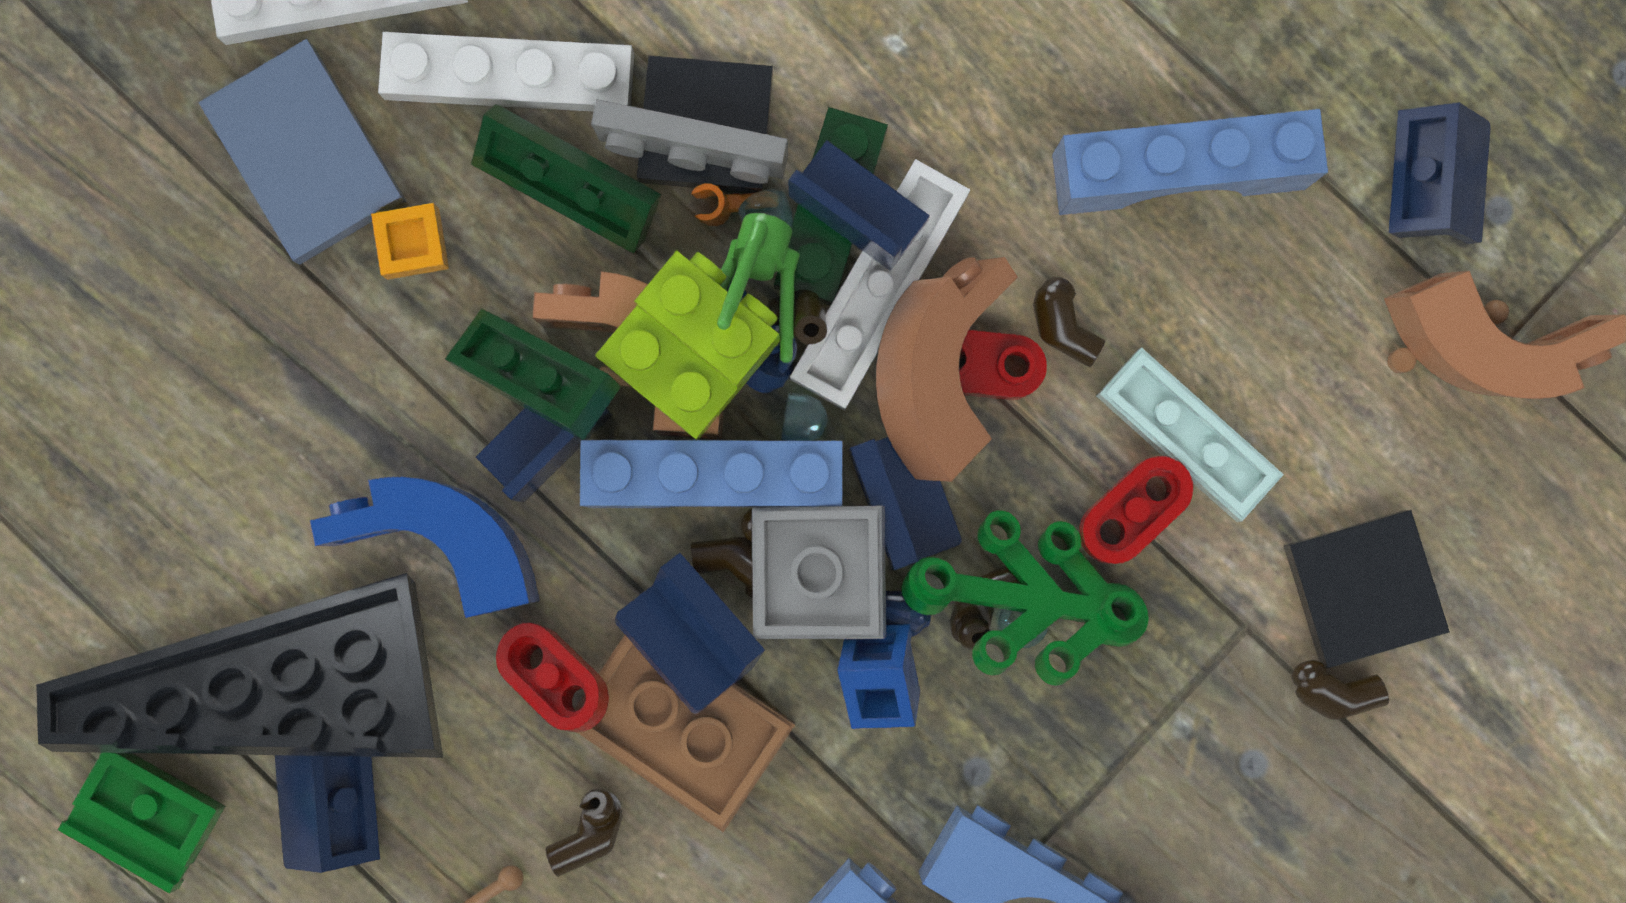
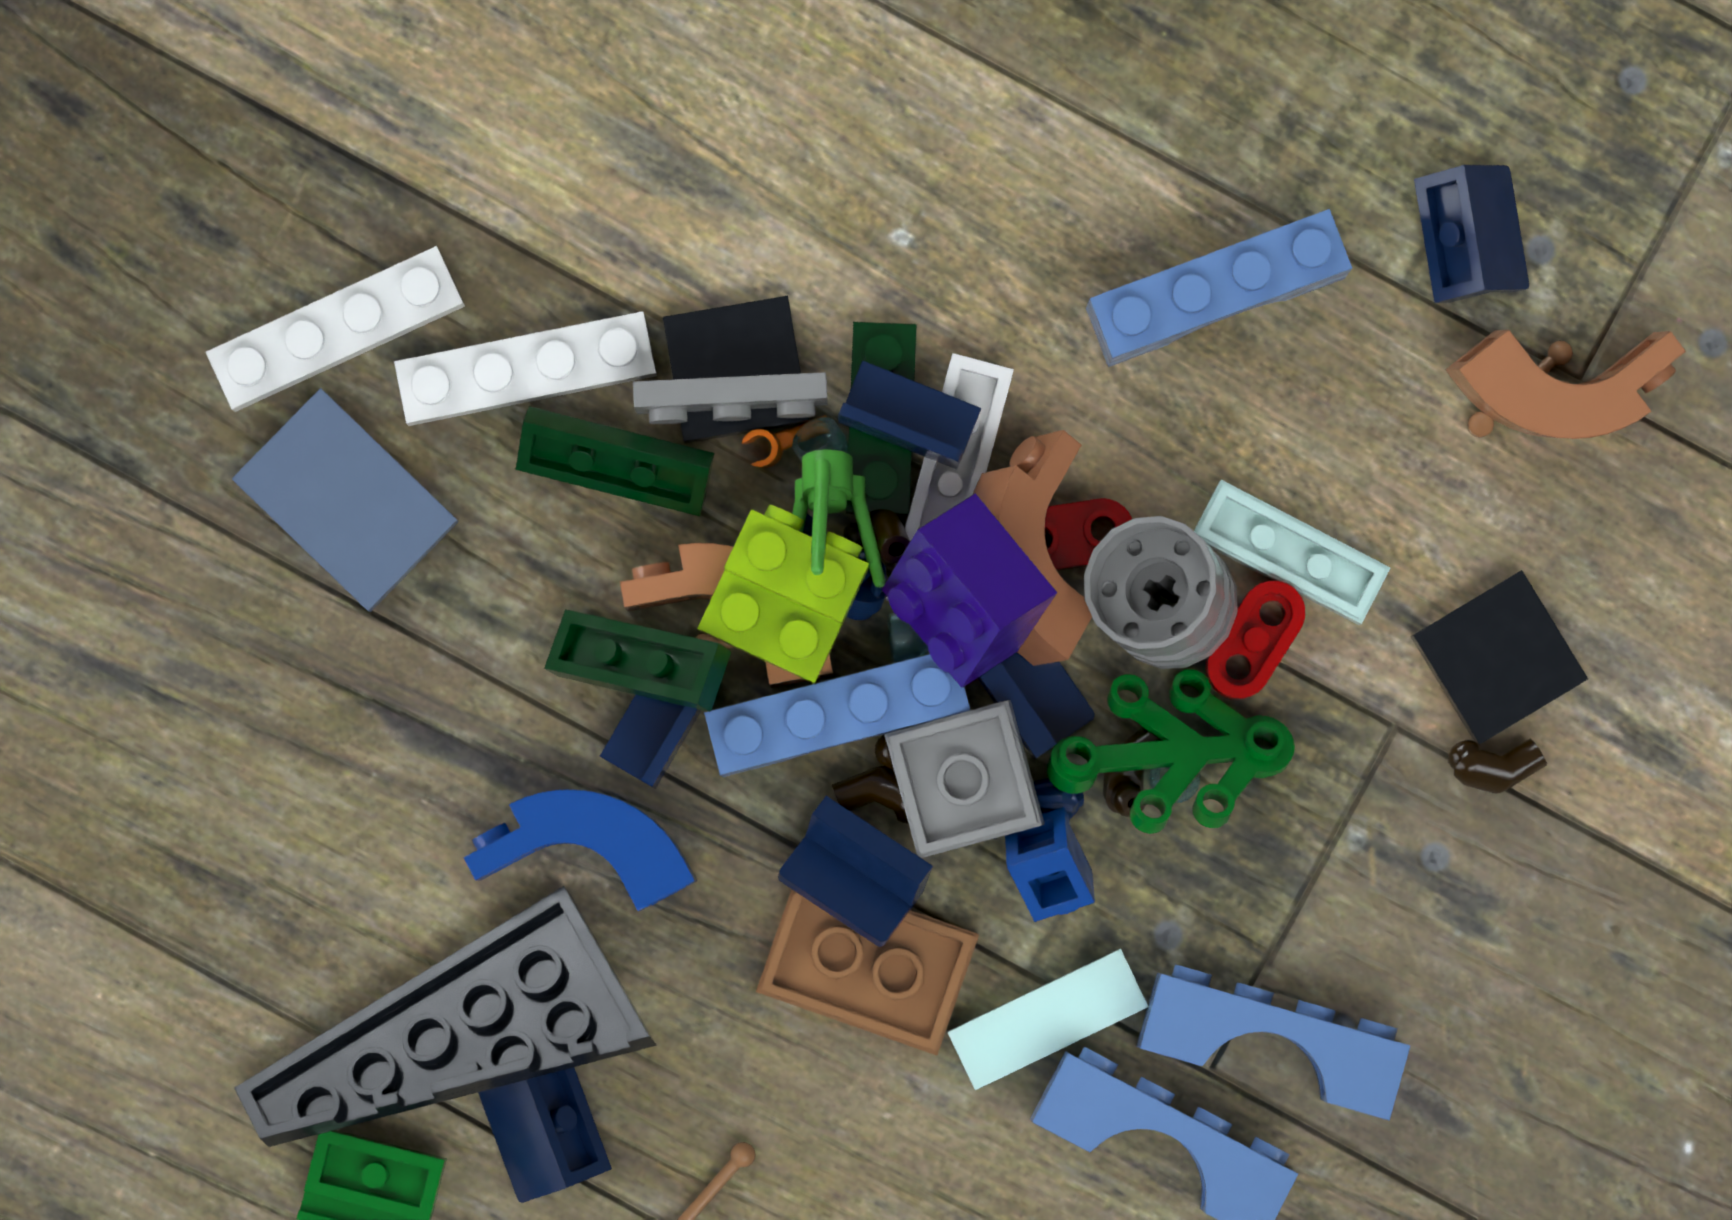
camera: 15 degrees left, 0 degrees up
(410, 241) = (478, 561): light orange plate -> none
(555, 680) = (736, 950): red plate -> none
(594, 834) = (813, 1090): dark brown arm -> none
(839, 824) = (1047, 1019): none -> light aqua tile
(871, 385) = (968, 590): none -> dark purple brick
(1058, 323) = (1133, 475): dark brown arm -> none
(1066, 405) = (1139, 564): none -> light grey wheel

